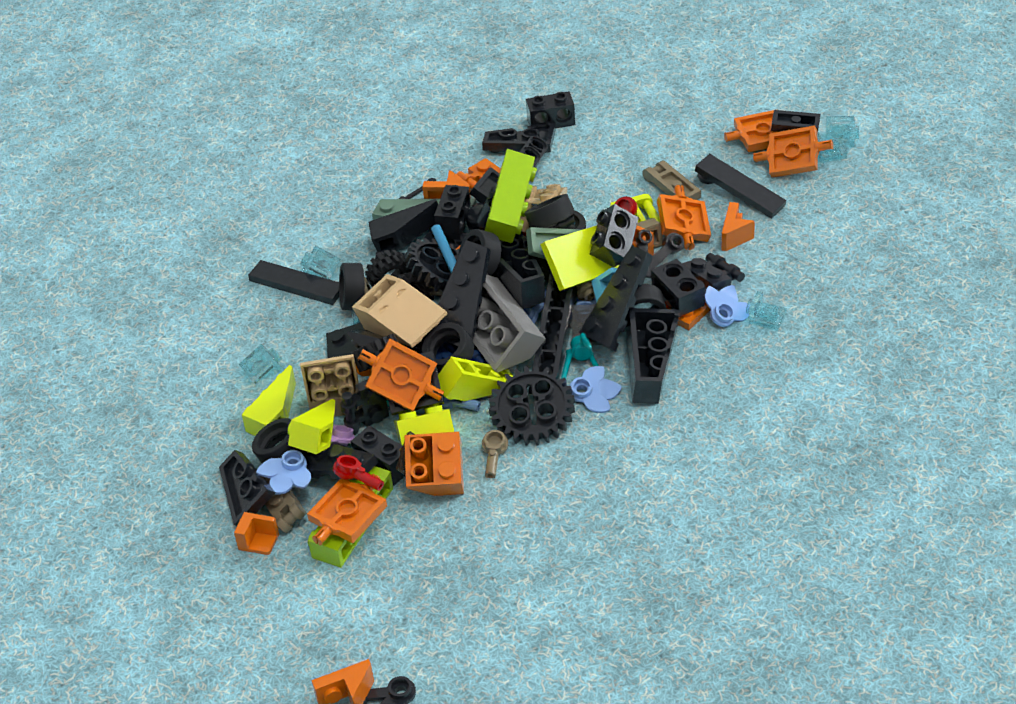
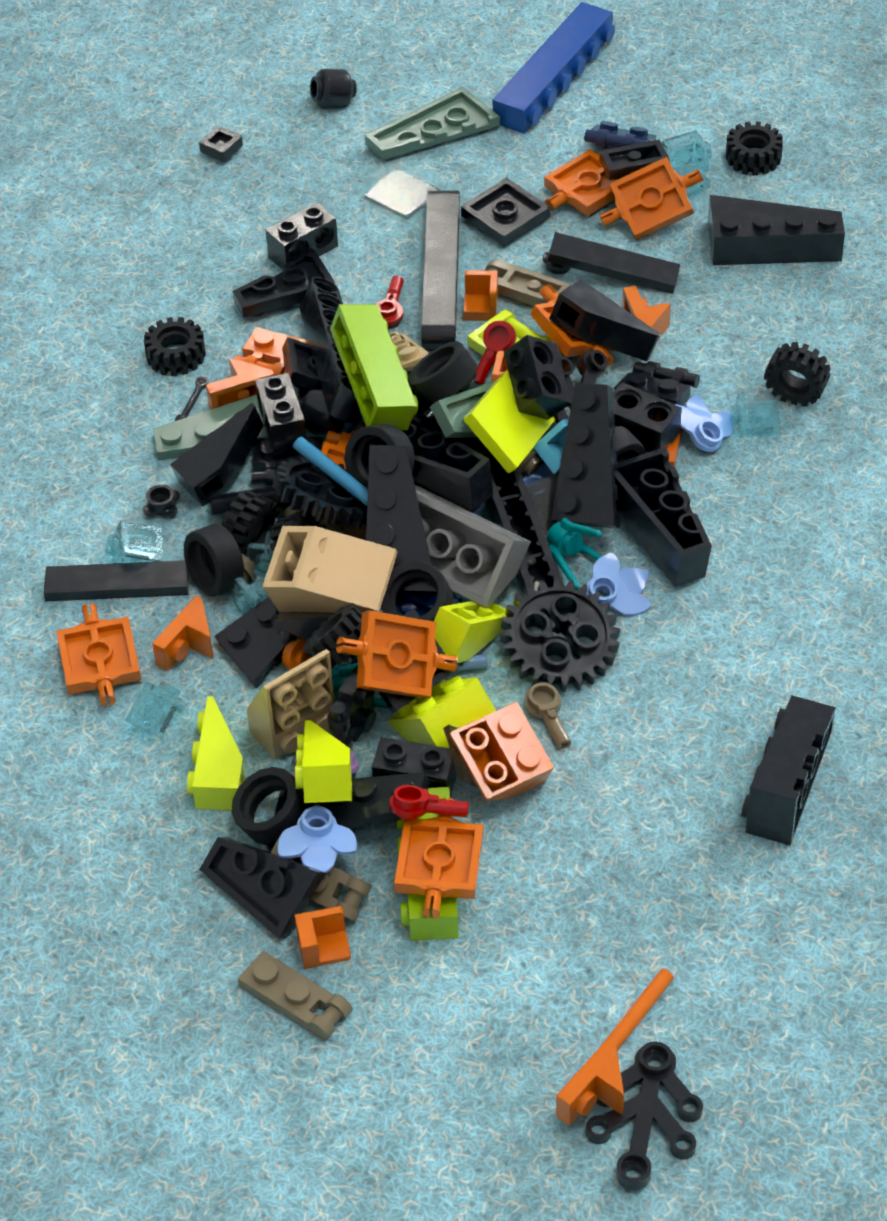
camera: 30 degrees left, 5 degrees up
(218, 561) = (294, 995): none -> dark tan plate
(252, 321) = (98, 655): none -> orange plate
(309, 324) = (185, 631): none -> orange slope
(354, 243) = (161, 501): none -> black plate
(411, 657) = (641, 1007): none -> orange bar
(419, 158) = (174, 333): none -> black tyre
(544, 41) = (221, 143): none -> black plate
(574, 174) = (390, 308): none -> red plate
(615, 542) = (788, 769): none -> black wedge
(624, 157) = (440, 269): none -> beam
(638, 26) = (332, 88): none -> black head
(638, 104) = (400, 193): none -> clear smoke piece
(640, 180) = (480, 295): none -> orange panel
(693, 215) = (601, 321): none -> black slope
(694, 133) = (505, 211): none -> black plate
(695, 65) = (434, 123): none -> sand green wing
(791, 51) = (553, 67): none -> blue brick
(799, 104) = (610, 135): none -> dark blue plate
(808, 293) = (803, 362): none -> black tyre
(862, 198) = (772, 232): none -> black wedge
(903, 143) = (754, 136): none -> black tyre

